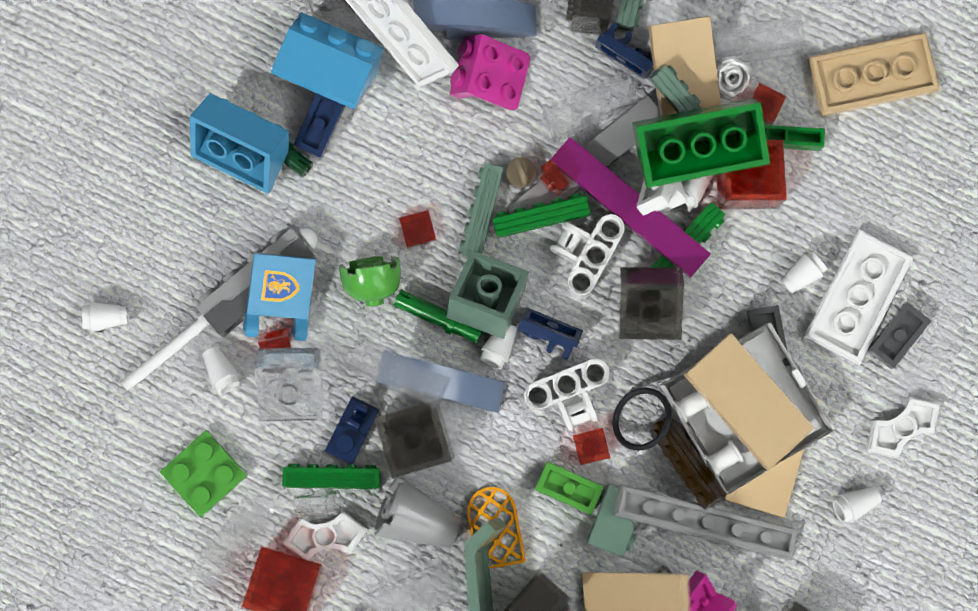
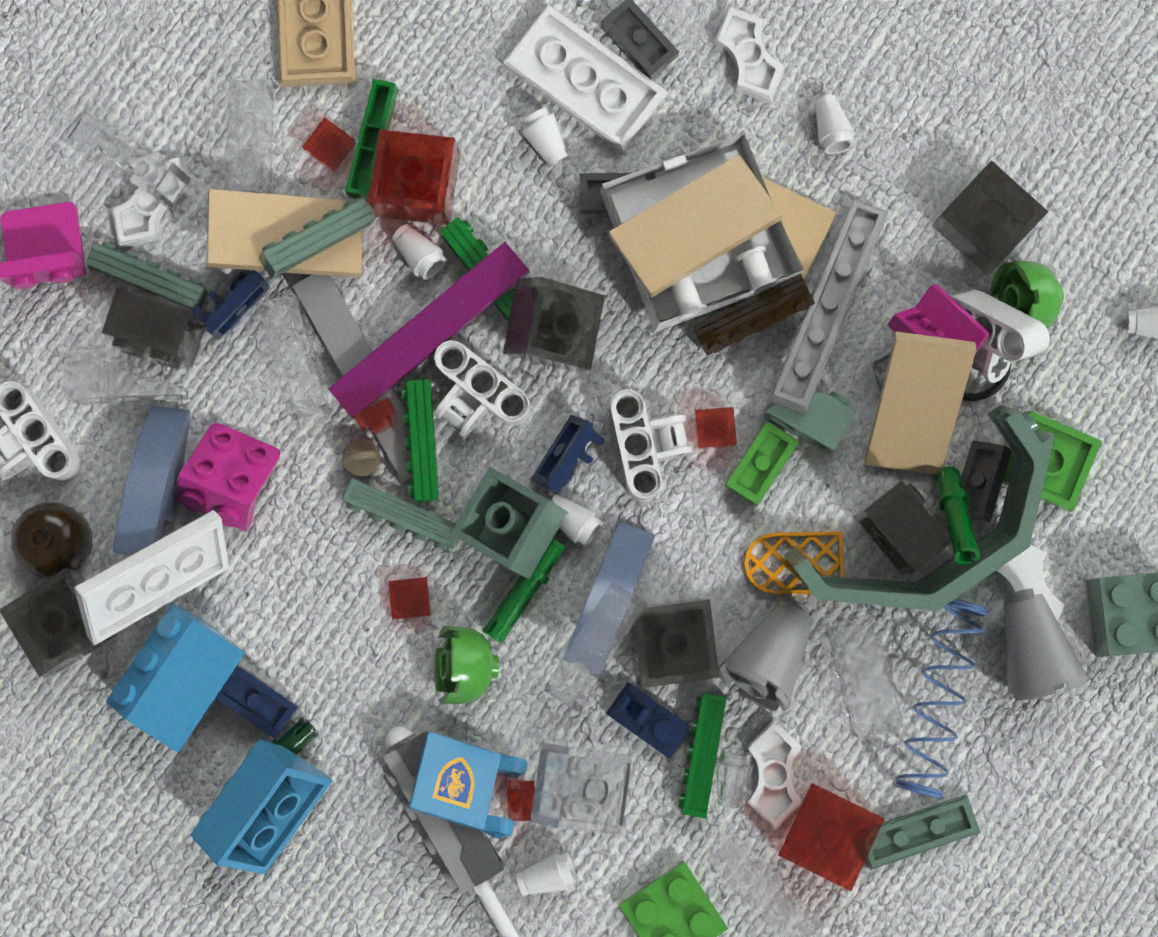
camera: 85 degrees left, 0 degrees up
(661, 197) = (413, 287): white slope -> none
(668, 418) = (714, 336): black tyre -> none
(701, 142) = (367, 226): green slope -> none
(739, 79) = (290, 169): white plate -> none

